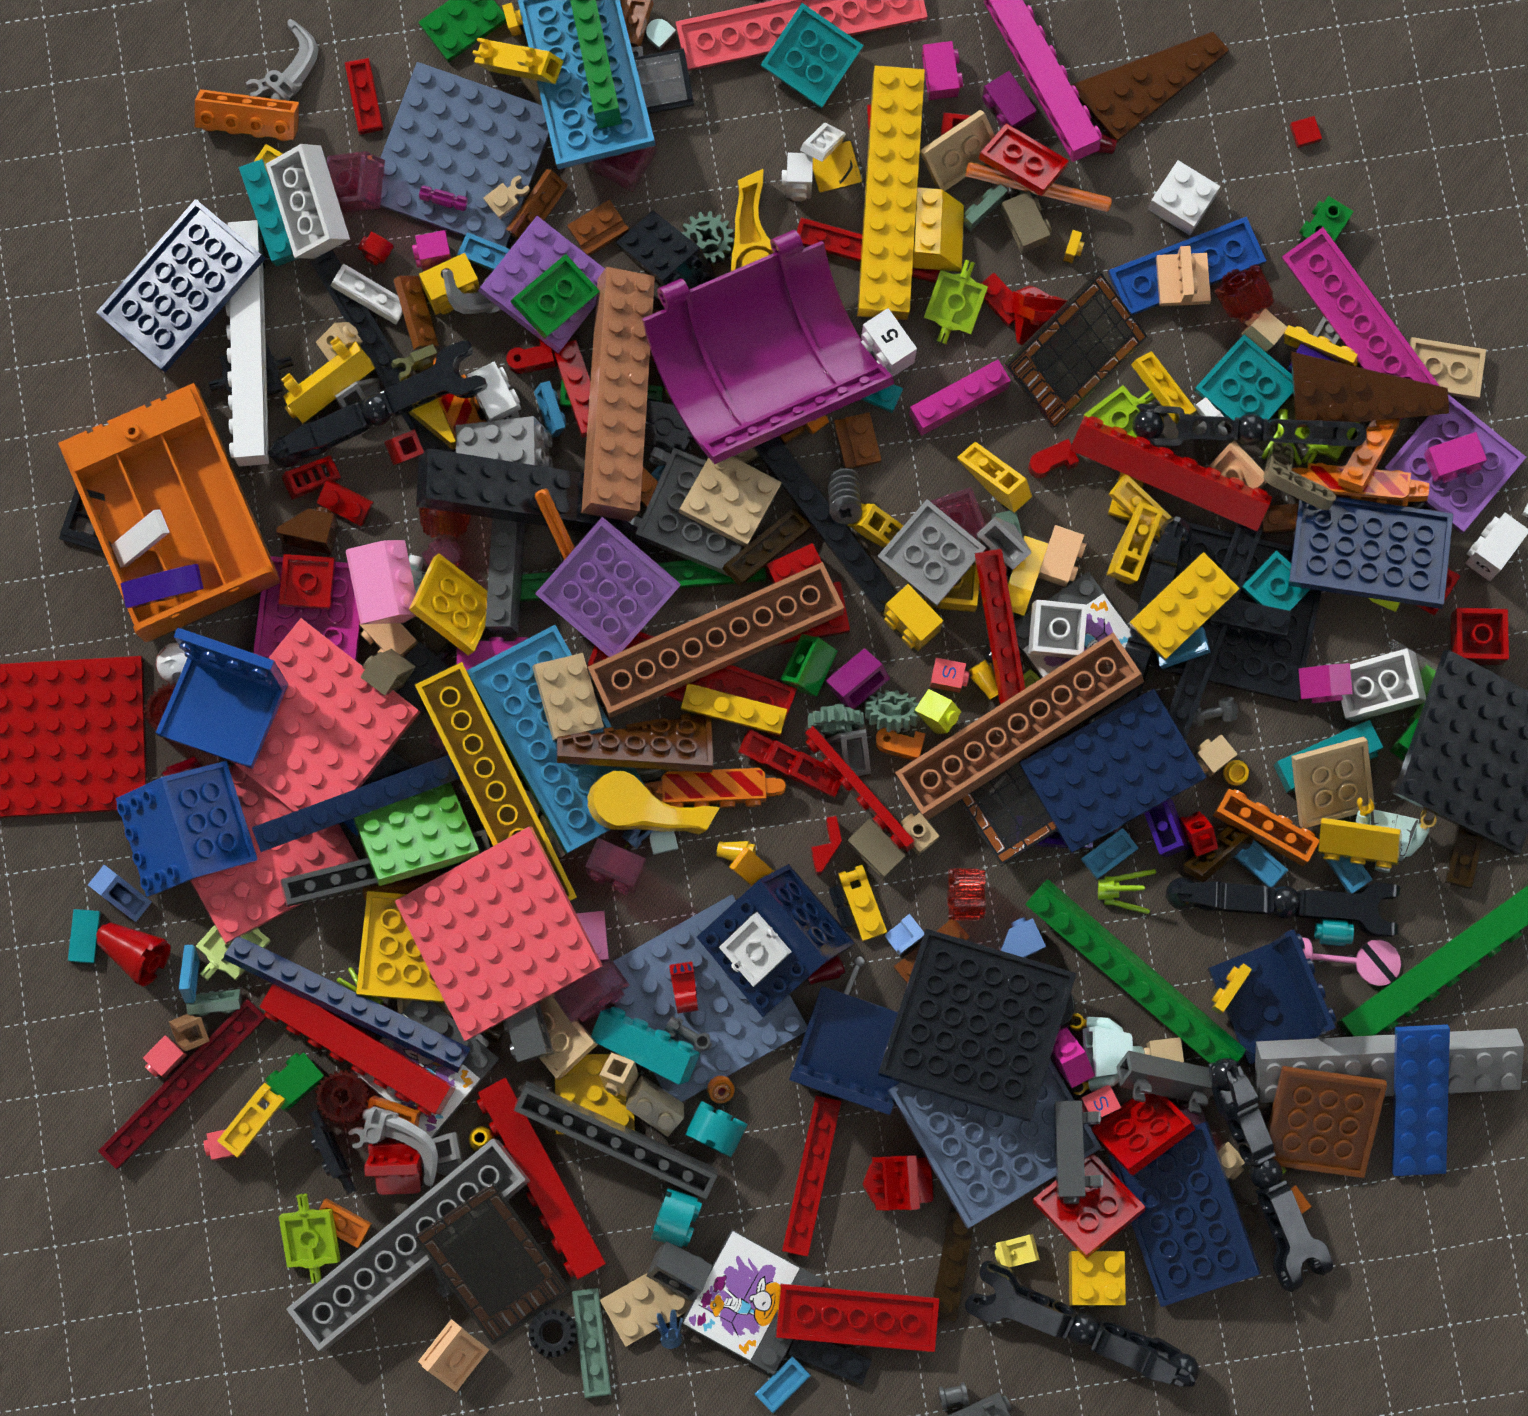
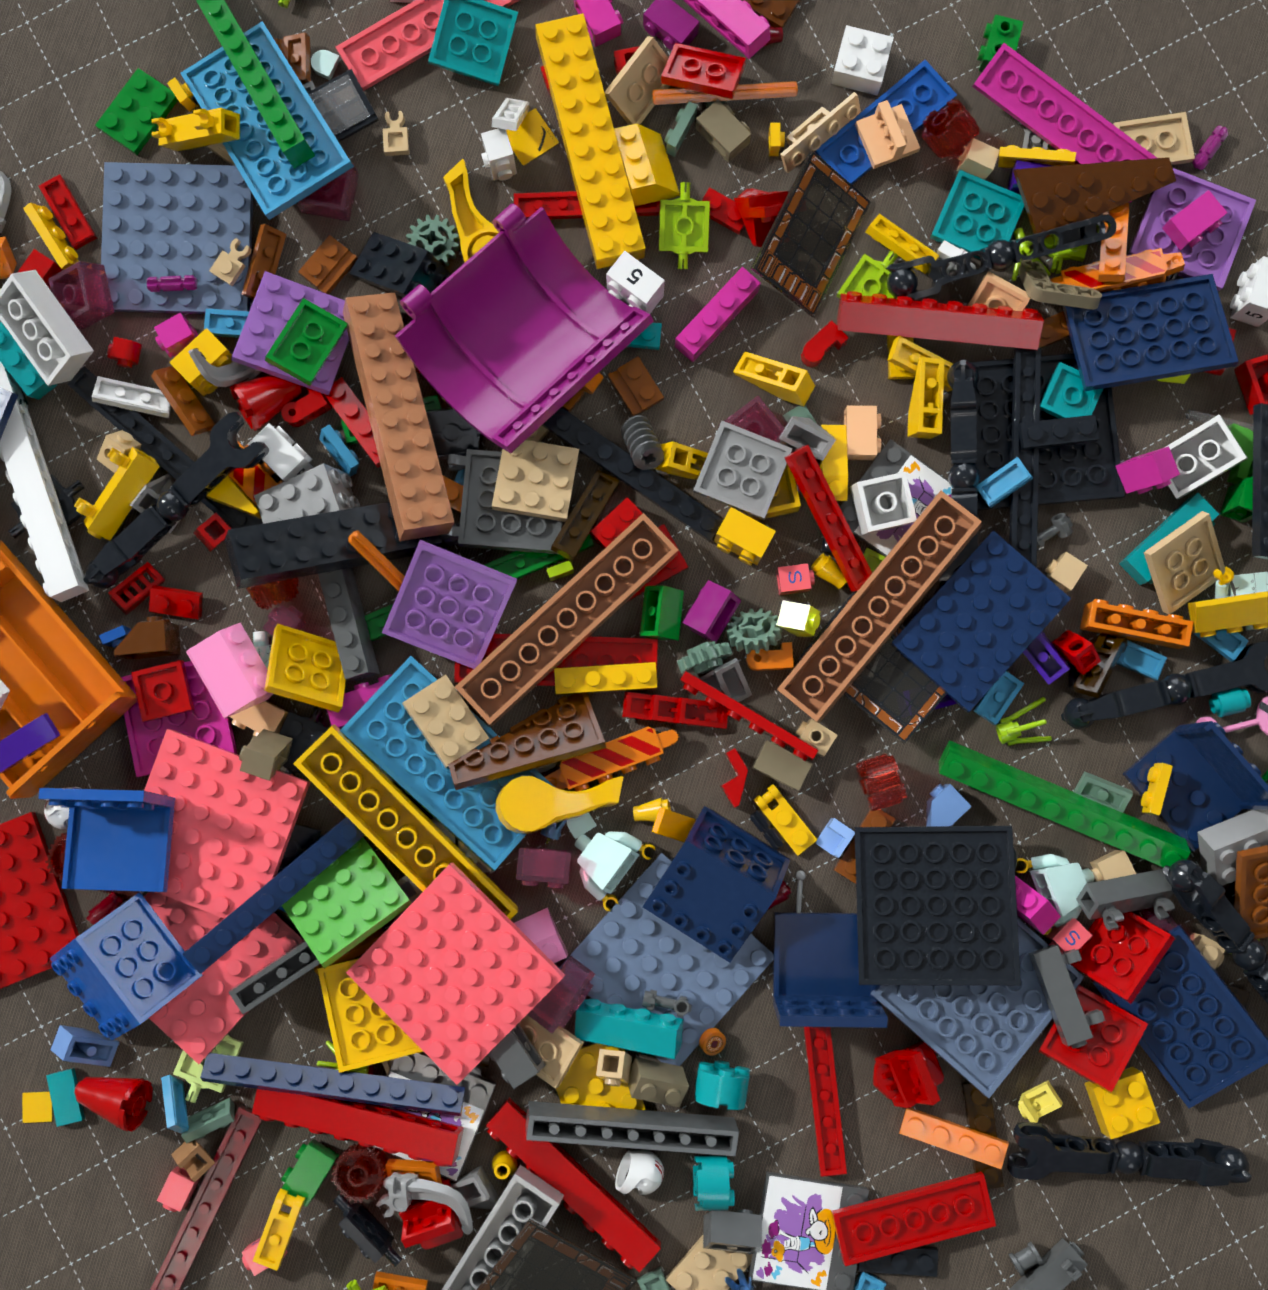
camera: 15 degrees left, 5 degrees up
(53, 937) = (37, 1107): none -> yellow sticker
(277, 516) = (114, 637): none -> blue plate
(322, 137) = (43, 265): none -> red brick
(343, 116) = (51, 235): none -> yellow plate
(419, 359) = (197, 446): olive plate -> none
(494, 335) = (263, 398): none -> red cone
(613, 1185) = (644, 1173): none -> white helmet
(676, 883) = (607, 861): none -> light aqua torso
(684, 987) = (647, 959): red leg -> none
(705, 127) = (396, 137): none -> tan plate
(724, 593) = (560, 570): none -> lime tile
(755, 949) = (704, 906): white plate -> none
(922, 1256) = (954, 1137): none -> orange plate
(1116, 252) = (818, 130): none -> tan bracket
(1181, 977) = (1103, 792): none -> sand green plate
(1184, 606) = (996, 442): yellow plate -> none
(1236, 772) = (1089, 582): yellow plate -> none
(1500, 391) = (1210, 147): none -> magenta axle

